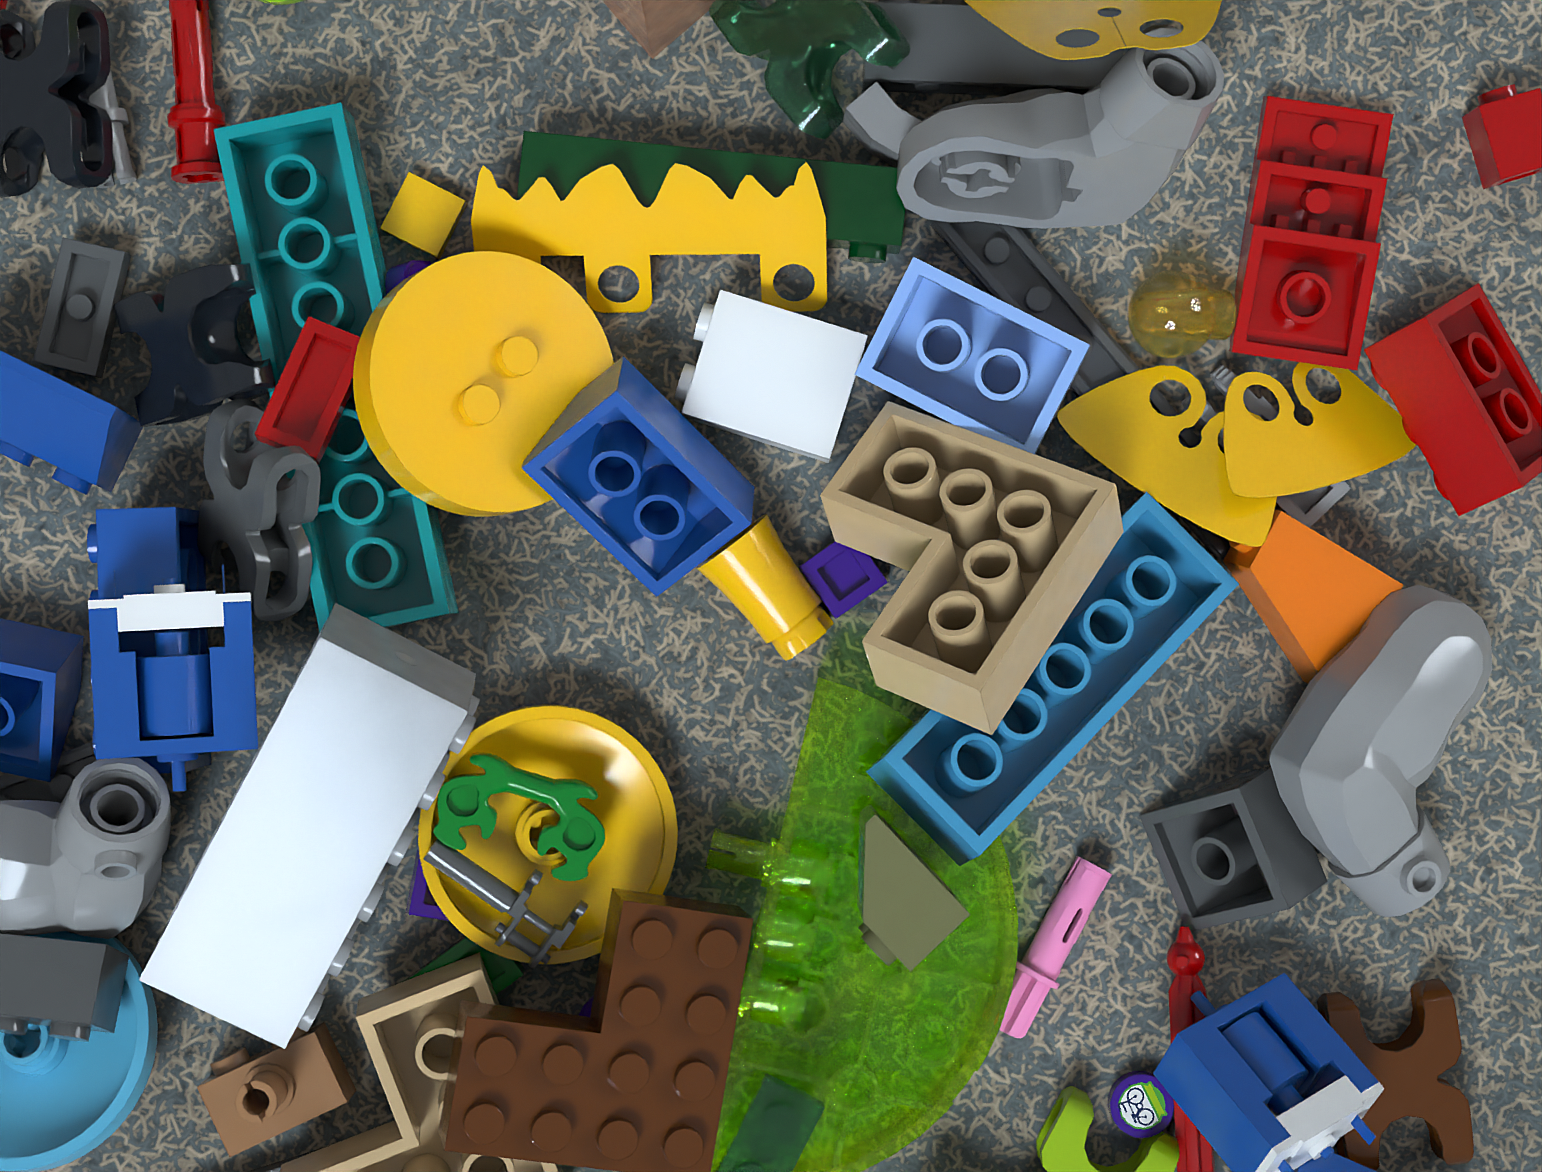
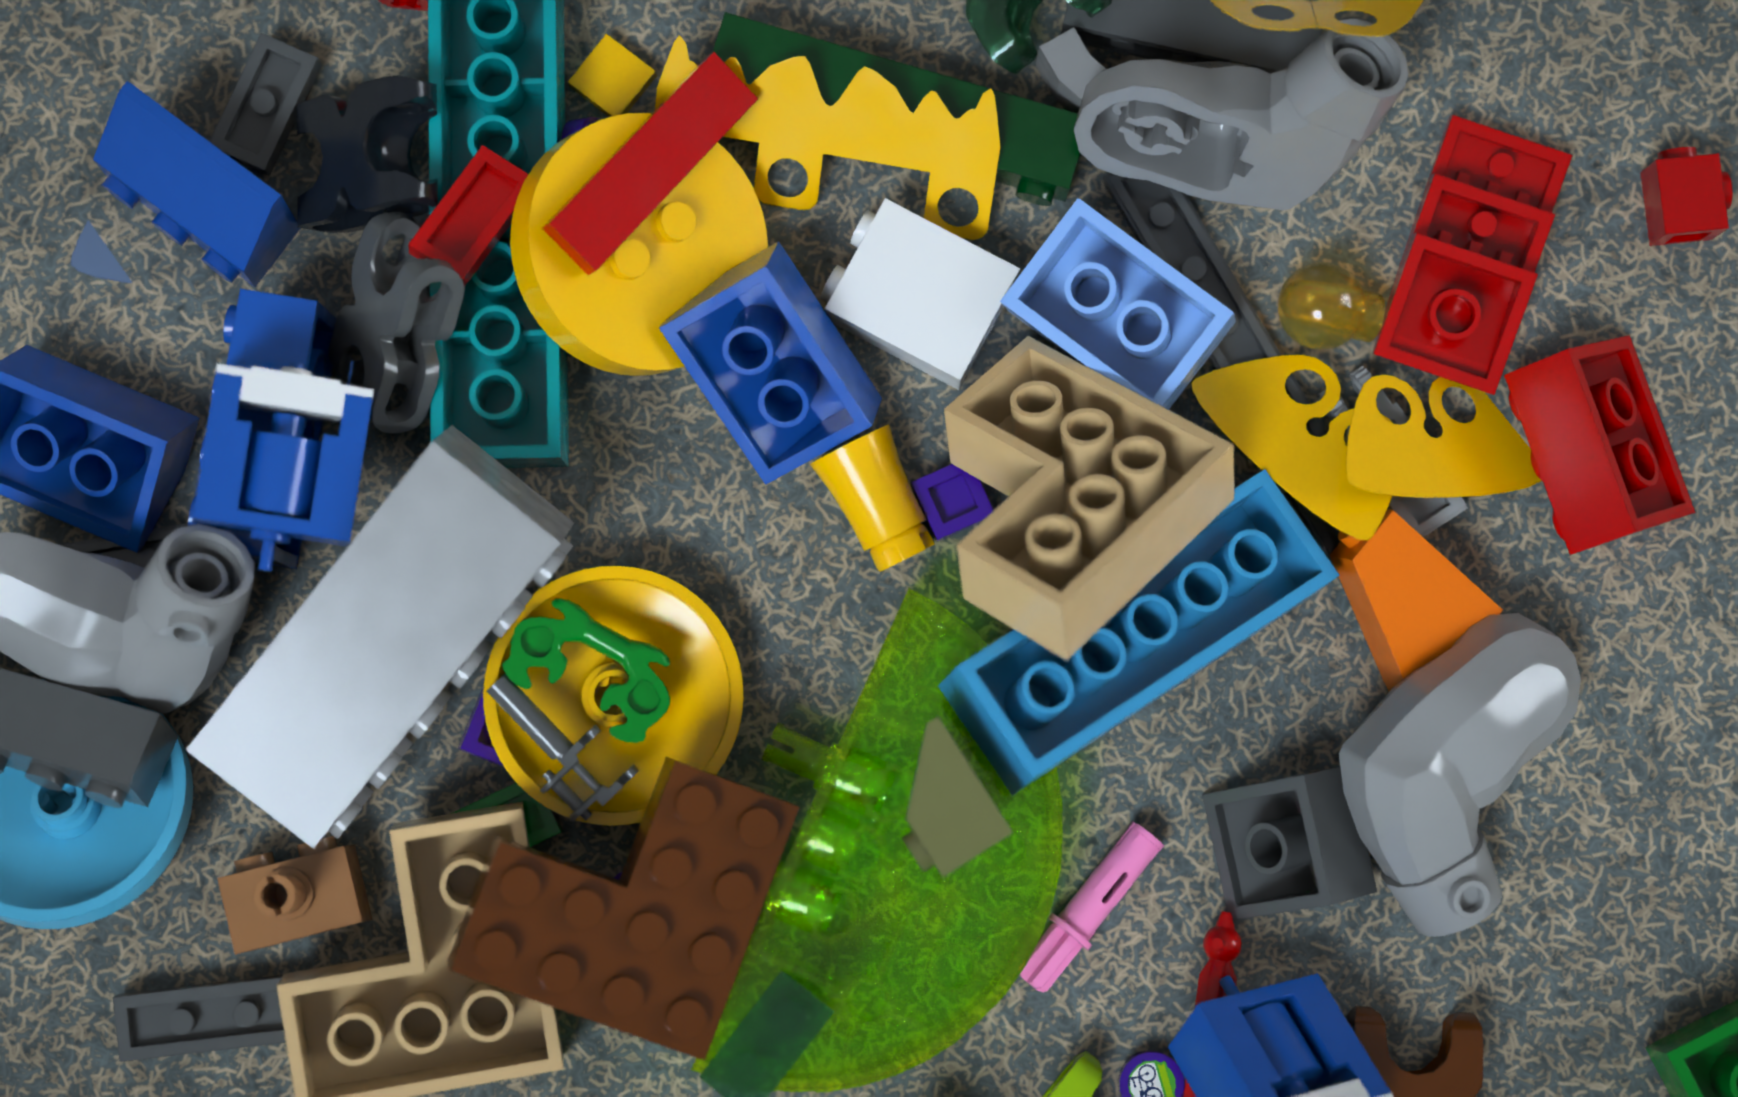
camera: 10 degrees right, 5 degrees down
(480, 305) = (650, 164): none -> red tile

